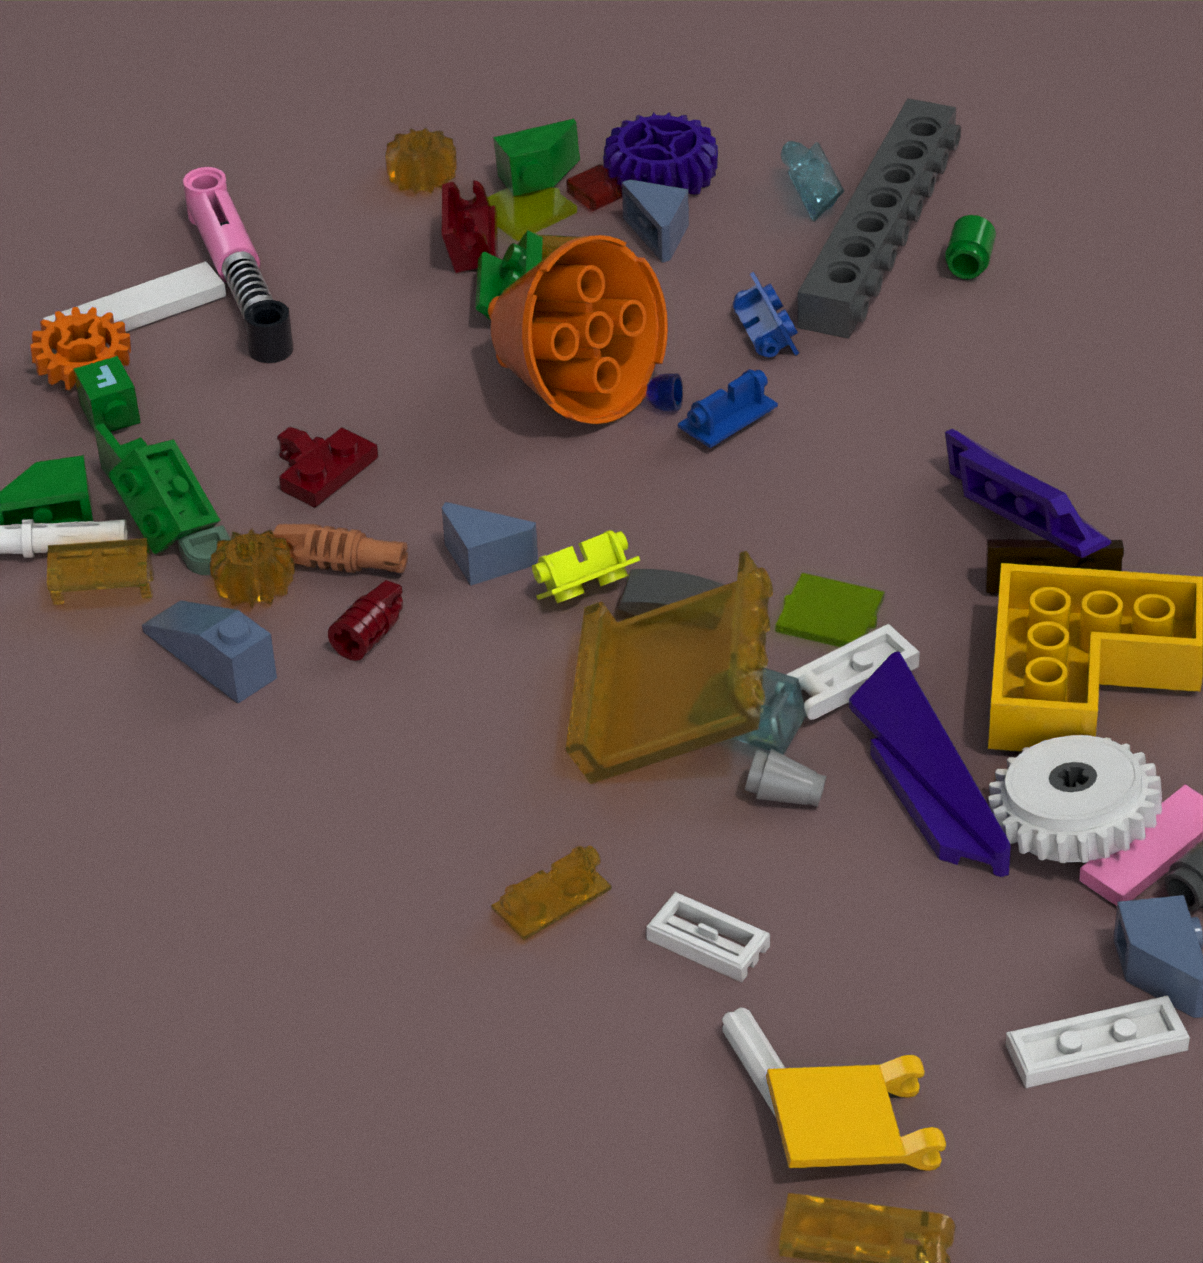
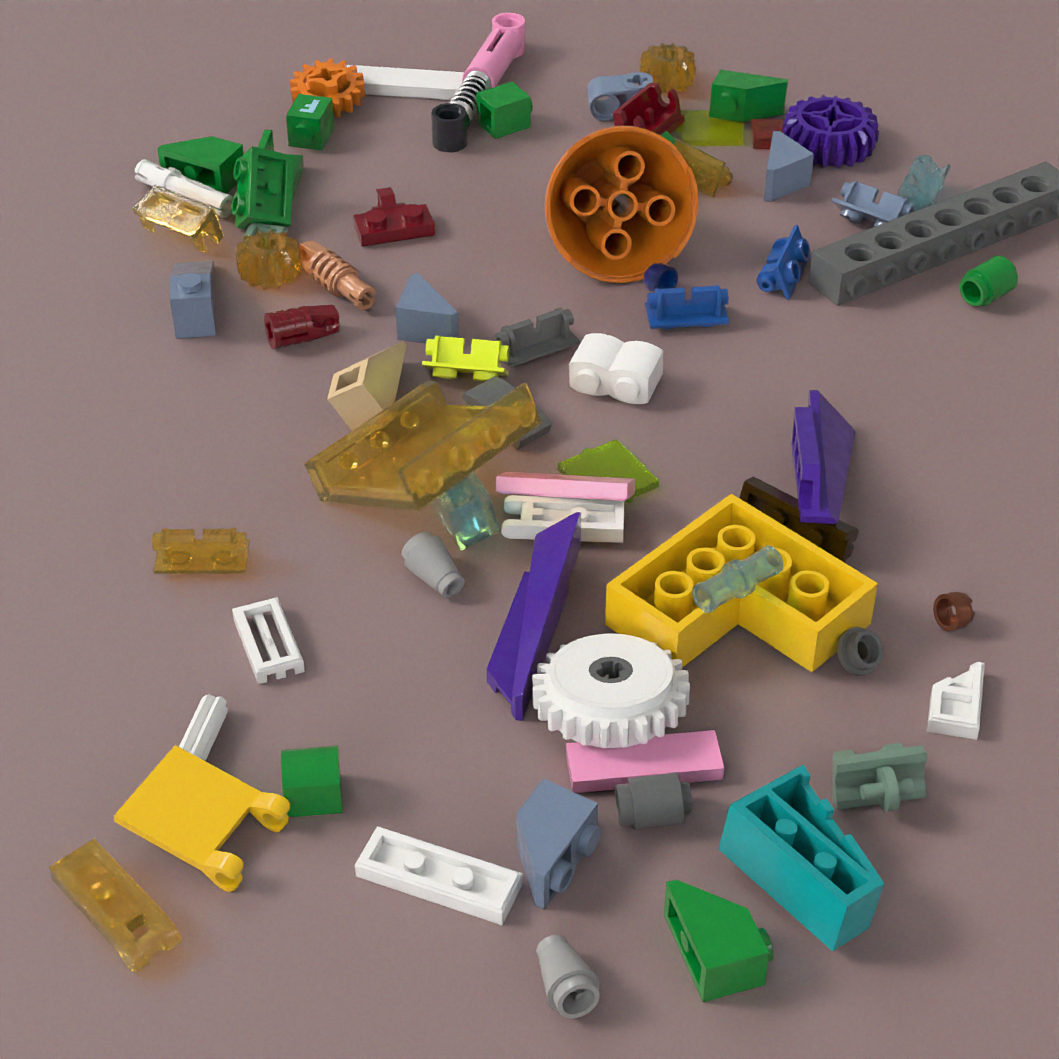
camera: 35 degrees right, 0 degrees up
(304, 283) = (504, 110): none -> green brick
(404, 215) = (617, 88): none -> sand blue piece
(525, 641) = (367, 385): none -> tan slope
(624, 506) = (547, 337): none -> dark grey hinge
(733, 503) = (616, 368): none -> white brick
(774, 223) = (859, 204): none -> sand blue hinge
(831, 635) = (565, 486): none -> bright pink tile
(911, 1023) = (312, 780): none -> green piece
(1106, 634) = (737, 579): none -> clear light blue pin

